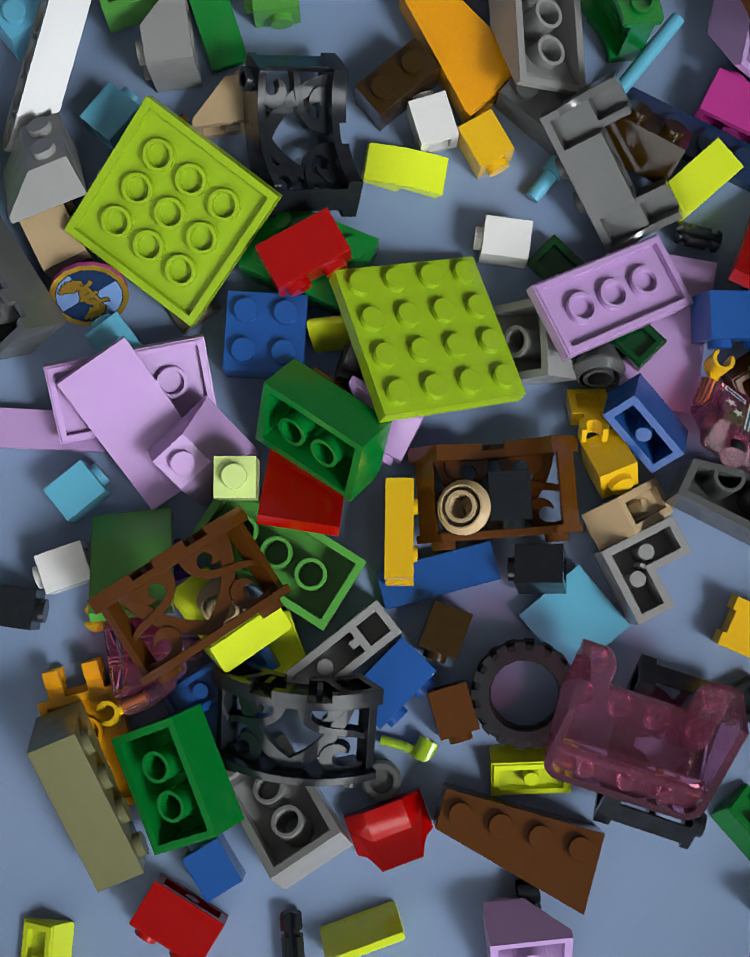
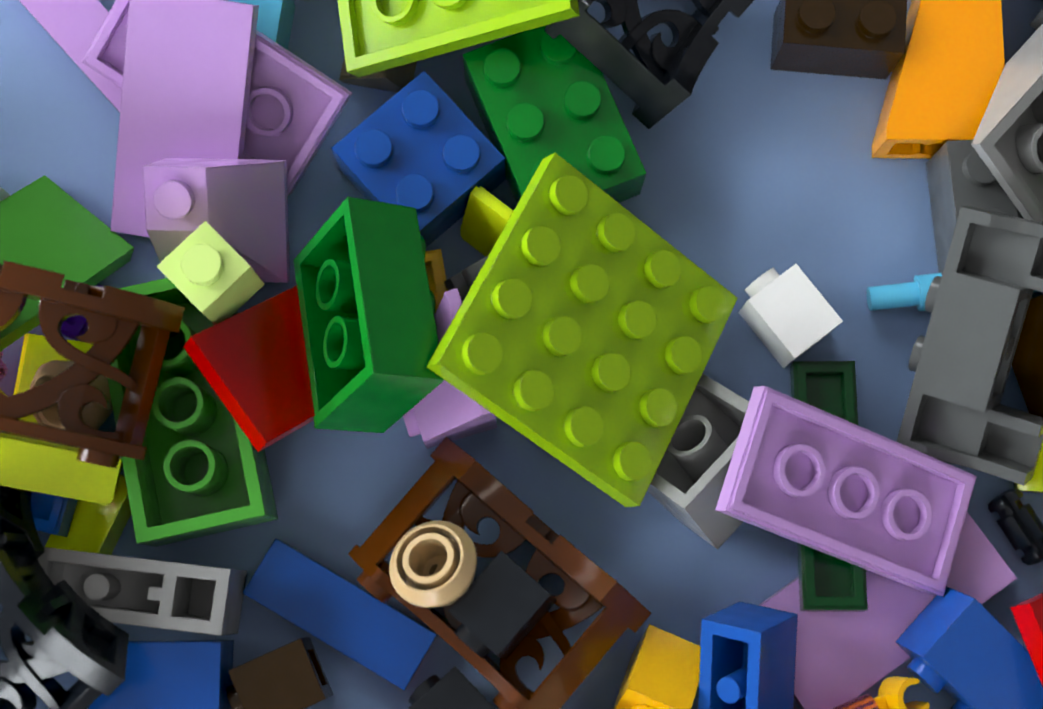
camera: 50 degrees right, 5 degrees down
(79, 490) = (55, 132): medium azure brick -> none
(304, 253) = (540, 103): red brick -> none
(399, 532) = (333, 522): yellow piece -> none
(404, 168) = (756, 131): neon yellow slope -> none
(432, 122) = (836, 110): white brick -> none
(485, 145) = (873, 189): yellow brick -> none
(586, 410) = (690, 596): yellow plate -> none
(599, 367) = (757, 561): dark grey cone -> none

